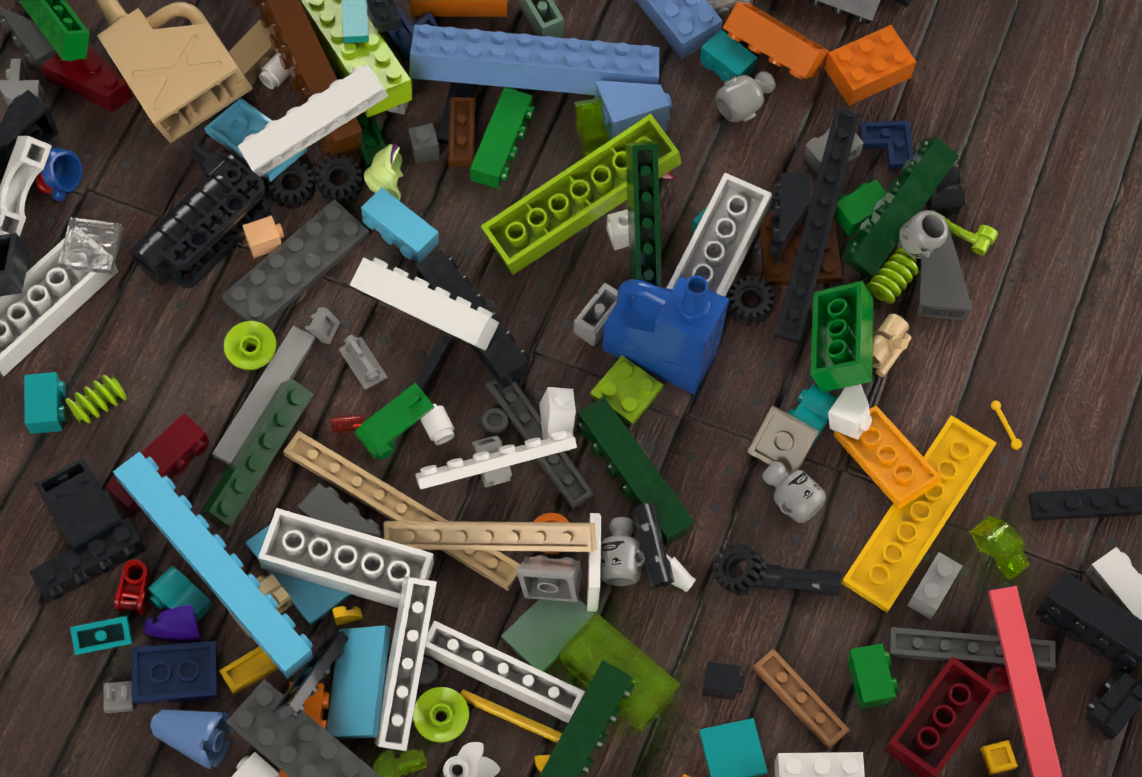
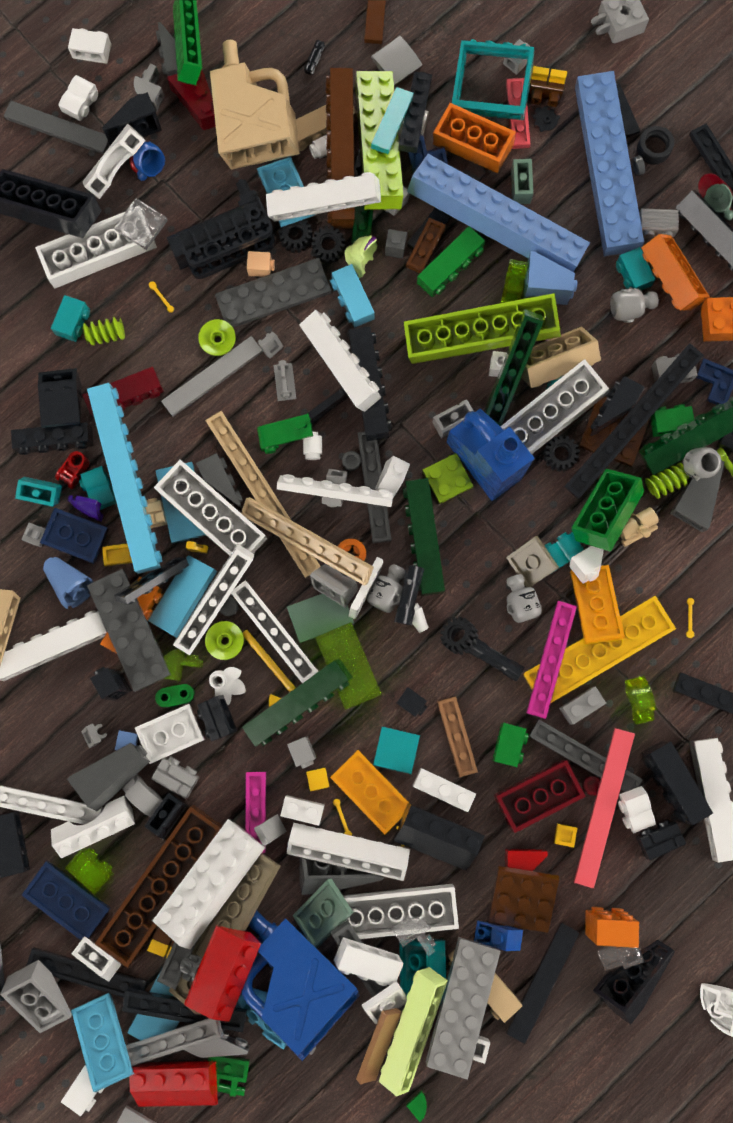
camera: 30 degrees right, 15 degrees up
(134, 320) = (153, 286): none -> yellow hinge
(256, 454) = (187, 414): dark green brick -> none
(346, 423) = (255, 419): clear red pin -> none
(692, 185) = (559, 355): none -> tan brick
(868, 547) = (551, 659): none -> dark pink tile
(1068, 679) = (637, 809): none -> white brick

